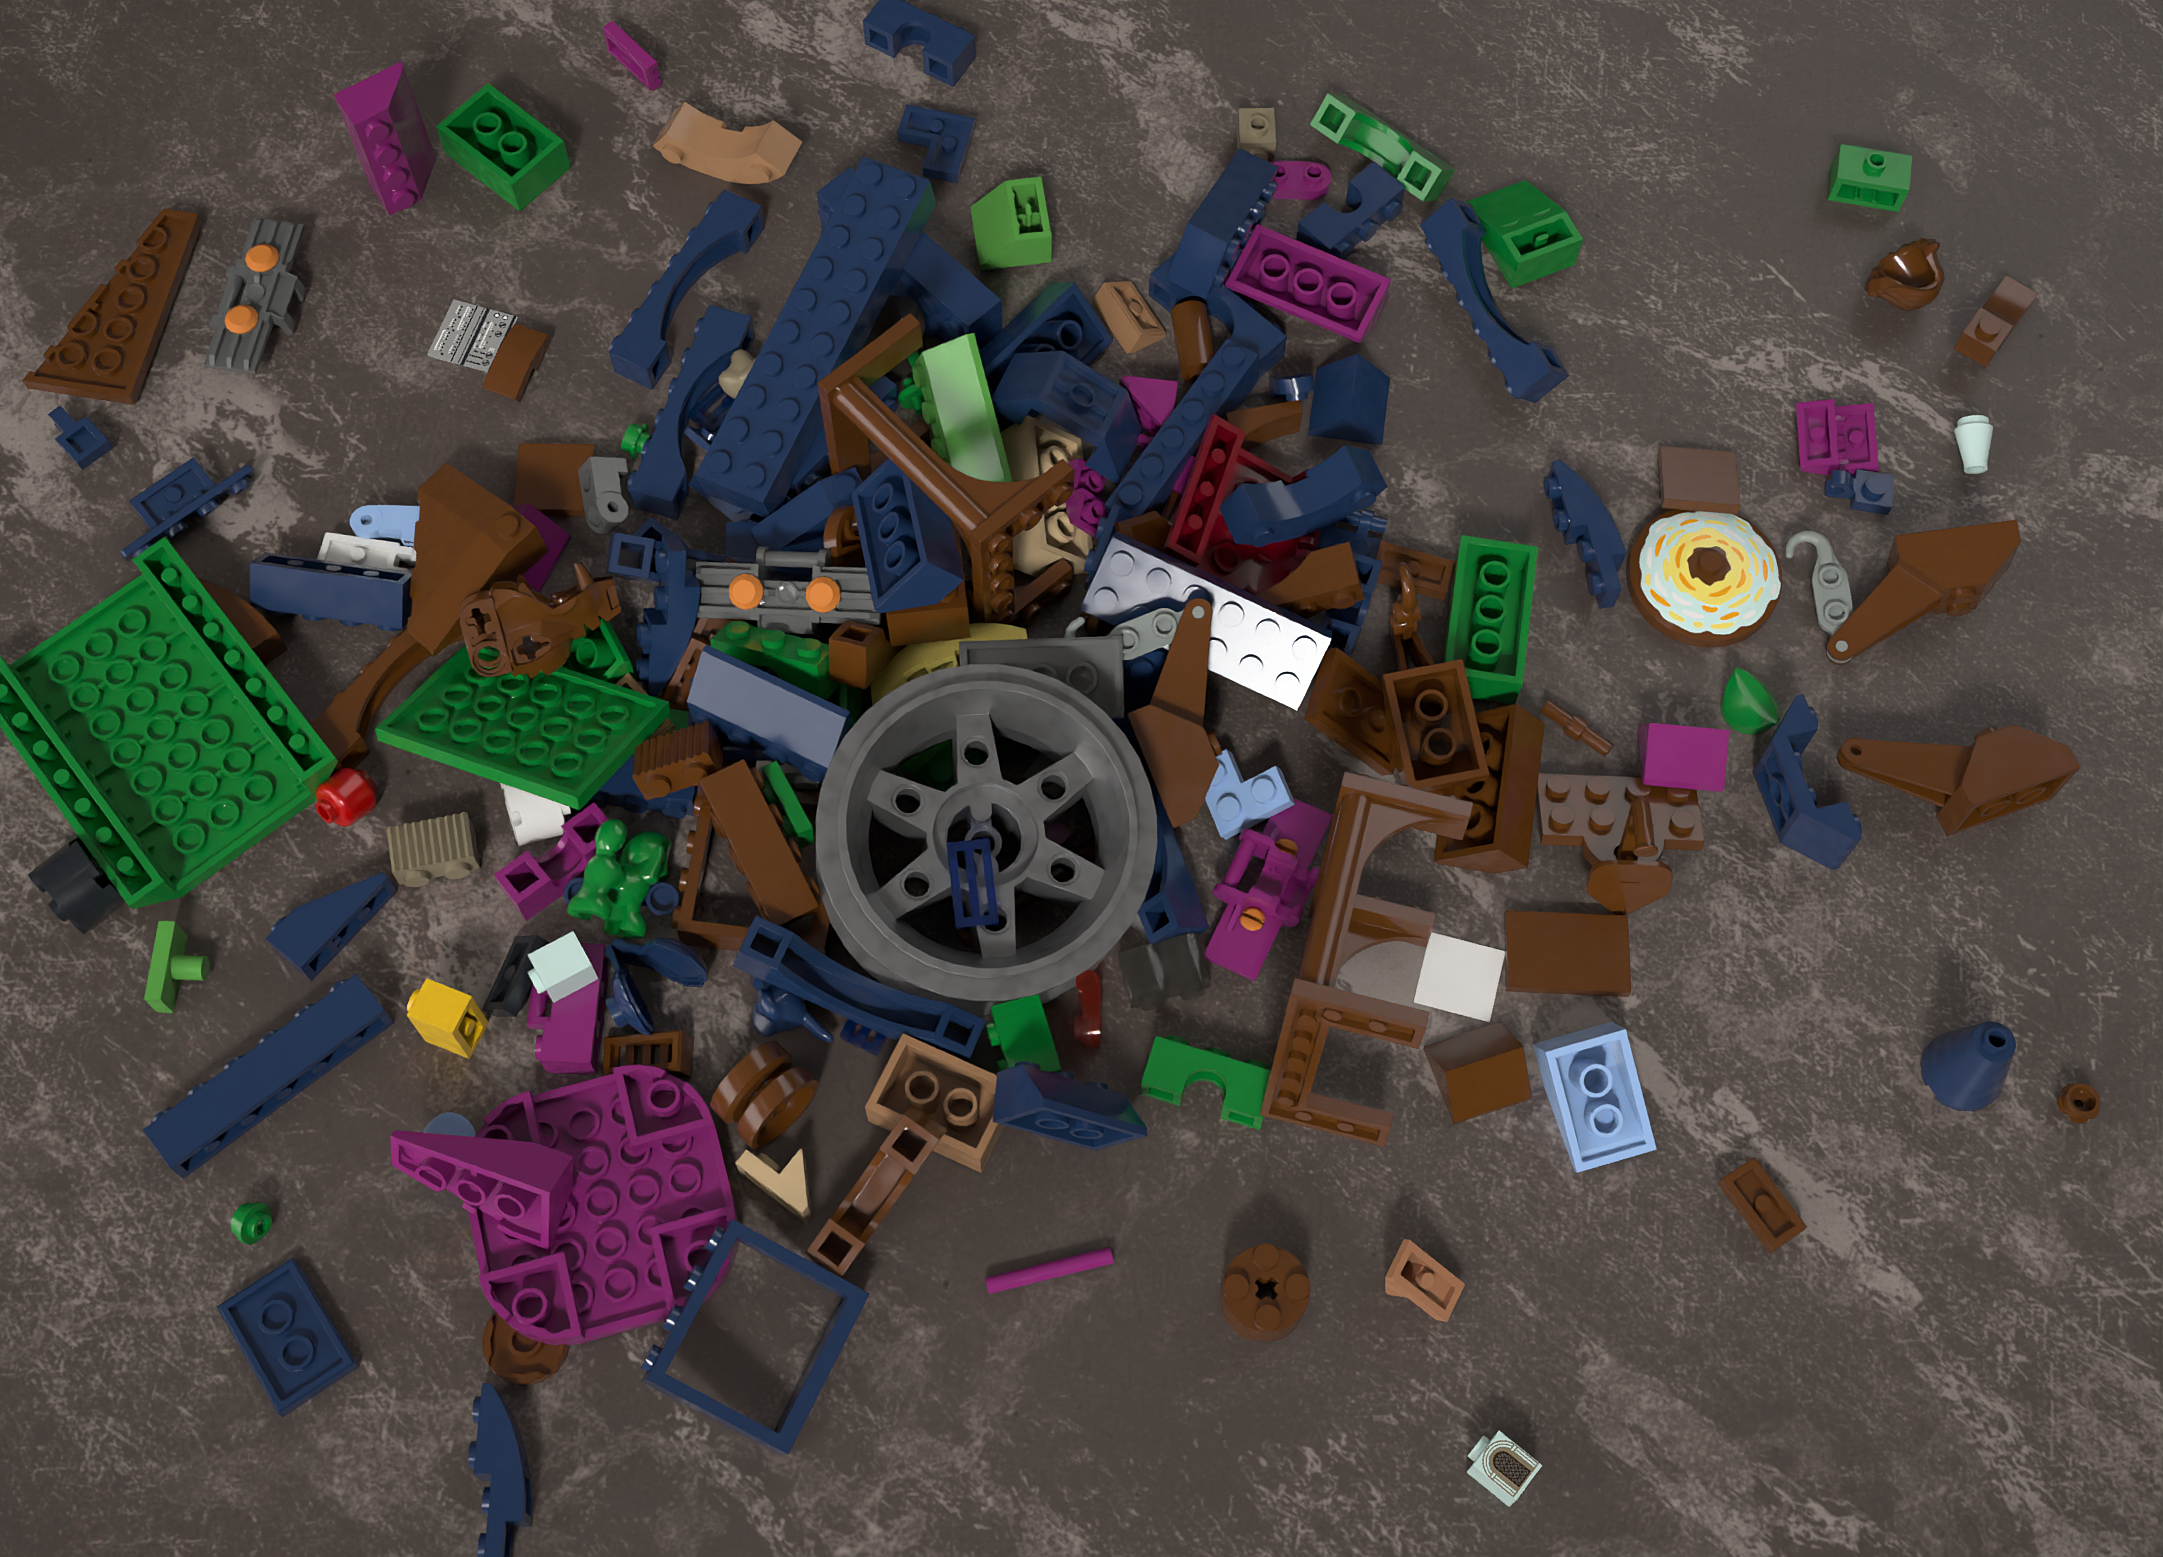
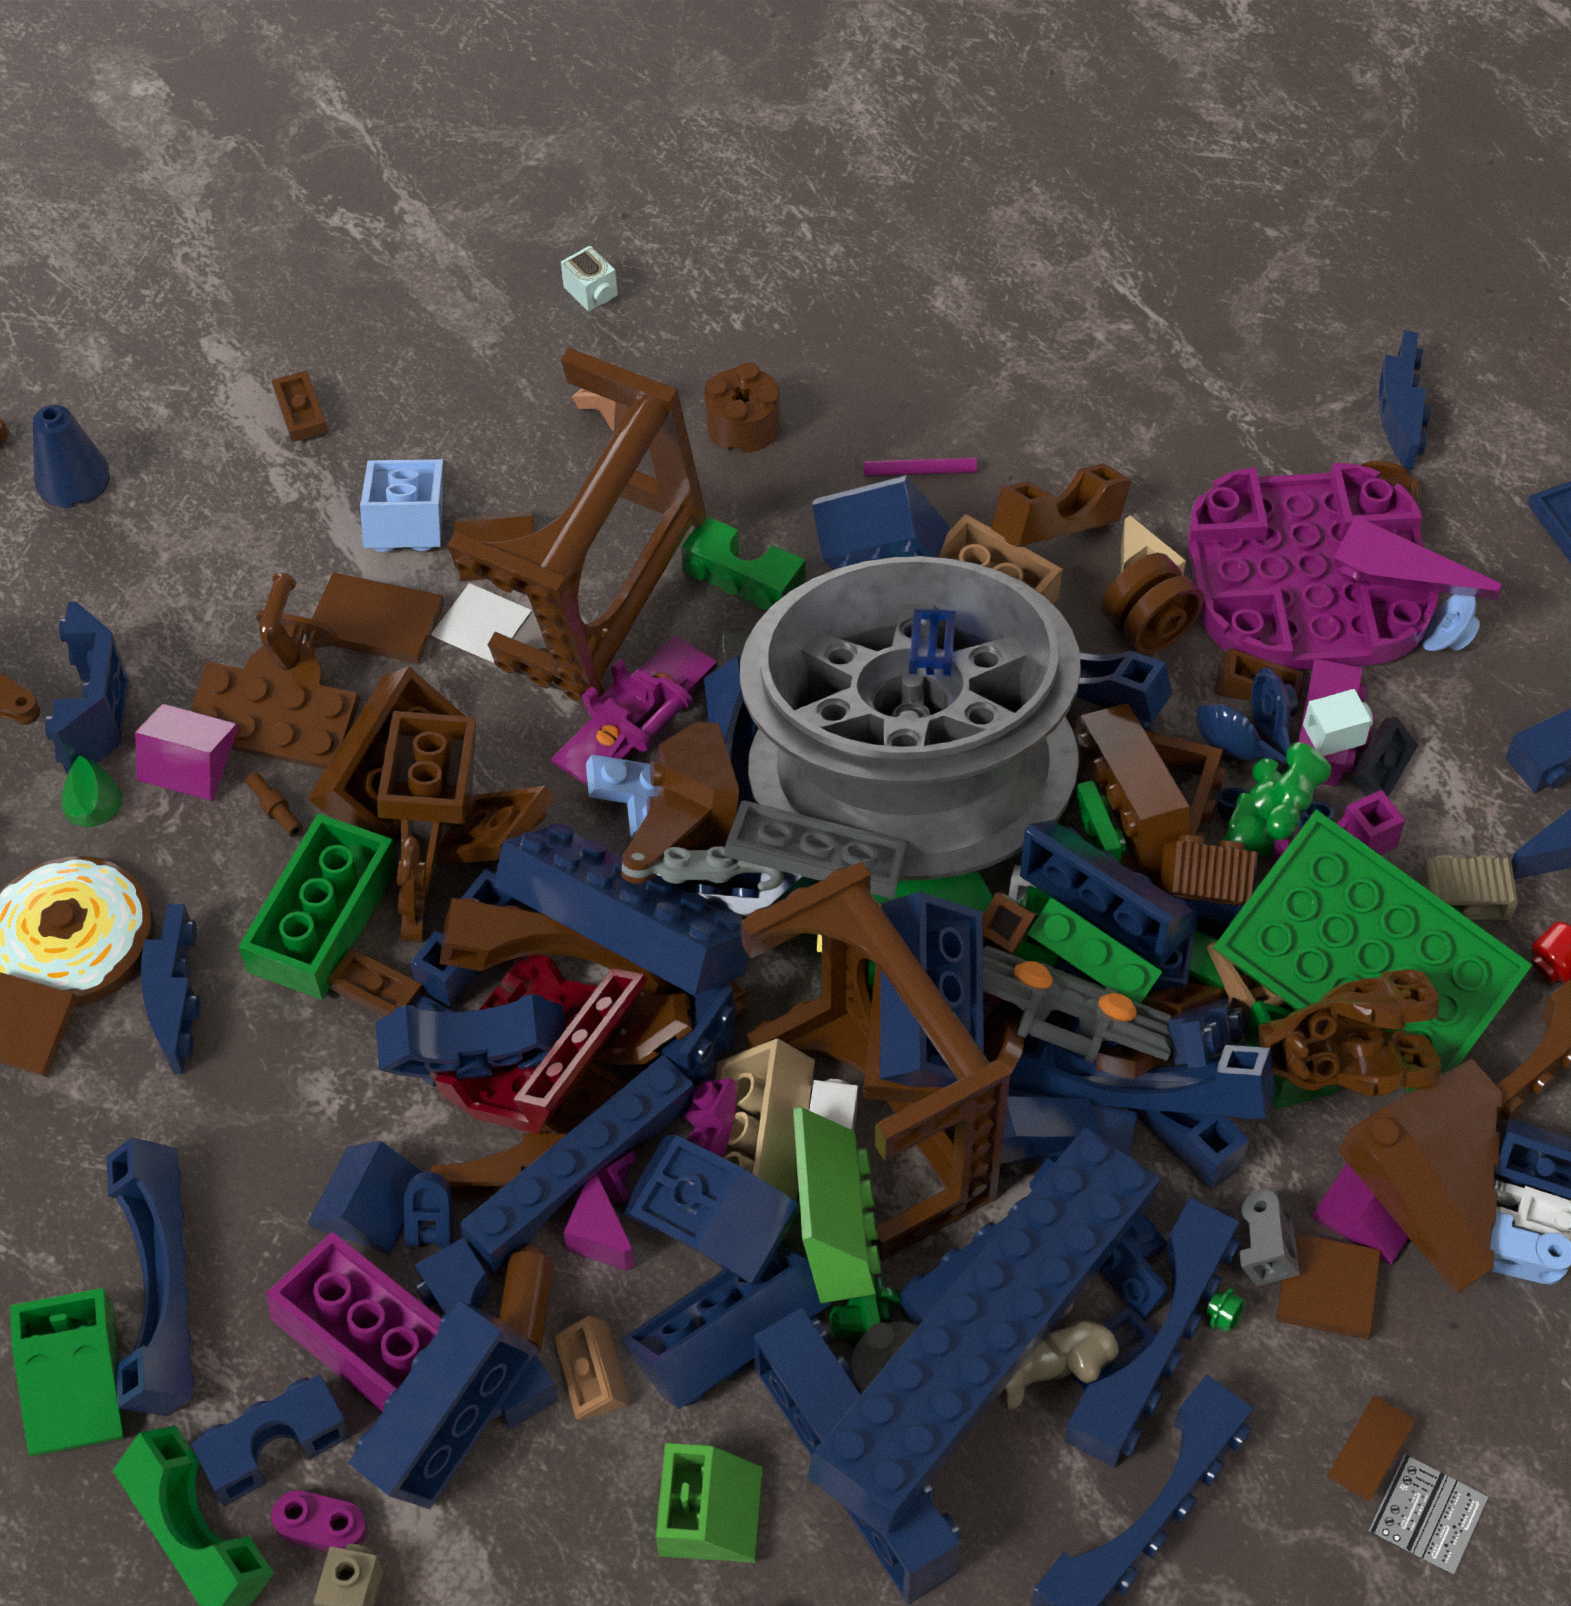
camera: 165 degrees left, 10 degrees down
(447, 1018) = (1452, 717): yellow brick -> none
(817, 1369) = (1146, 407): dark blue window -> none

